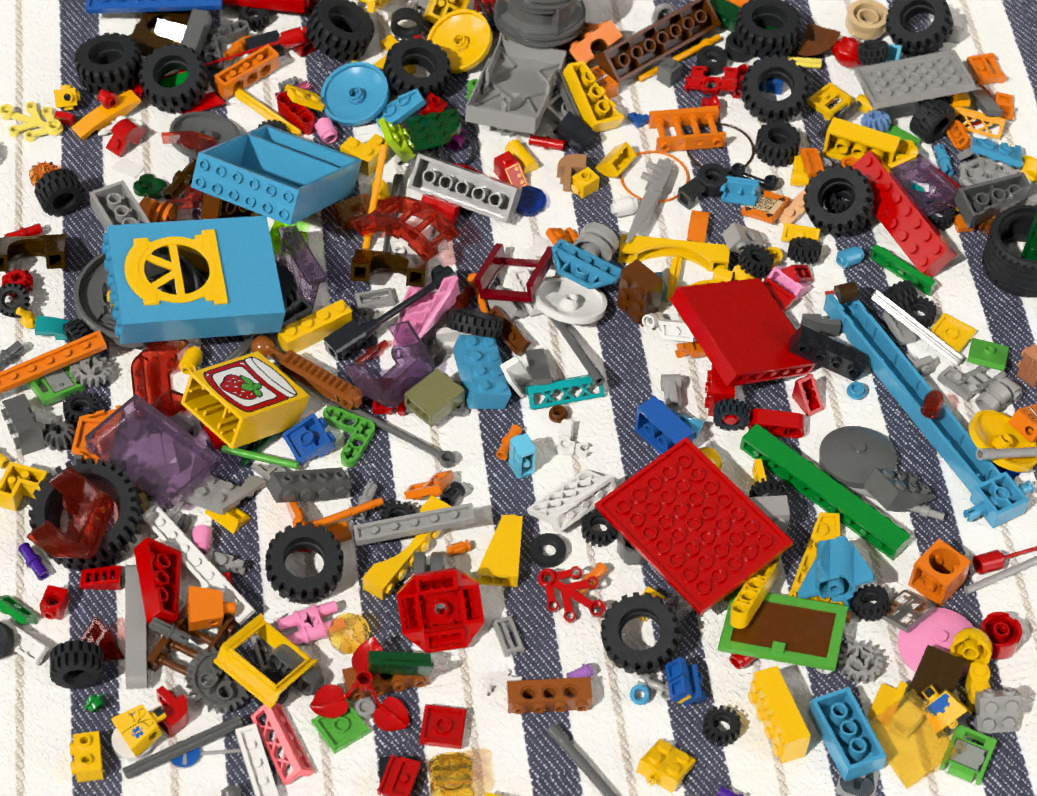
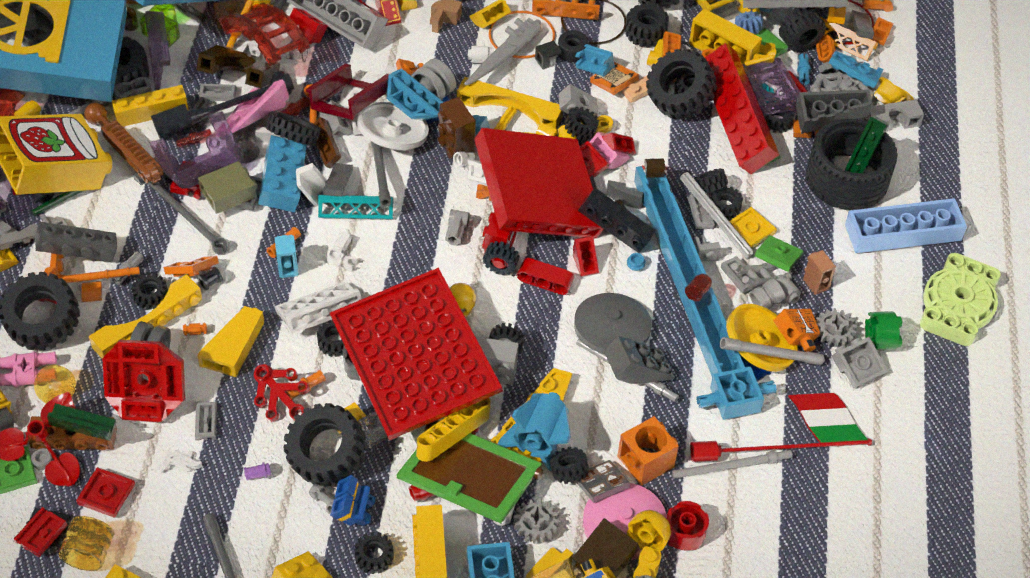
camera: 15 degrees right, 0 degrees up
(260, 457) = (49, 209): bright green bar -> none
(309, 439) = (101, 202): blue plate -> none
(355, 429) = (148, 206): bright green beam -> none
(414, 524) = (156, 296): light grey plate -> none
(531, 201) = (396, 34): clear blue tile -> none
(548, 561) = (278, 359): black tyre -> none
(557, 413) = (340, 225): reddish brown plate -> none
(557, 688) = (210, 477): dark orange brick -> none
(585, 182) = (452, 27): yellow brick -> none
(645, 699) = (301, 504): dark azure plate -> none
(660, 425) = (429, 254): blue brick -> none
(695, 423) = (458, 259): dark azure piece -> none
(697, 226) = (543, 84): orange slope -> none
(758, 471) = (509, 314): yellow tile -> none
(769, 183) = (626, 57): black bar -> none
(793, 231) = (637, 109): yellow plate -> none
(804, 250) = (634, 124): black tyre -> none
(825, 492) = (568, 351): green brick -> none
(849, 256) = (677, 138): dark azure brick -> none
(902, 270) = (730, 166): green plate -> none

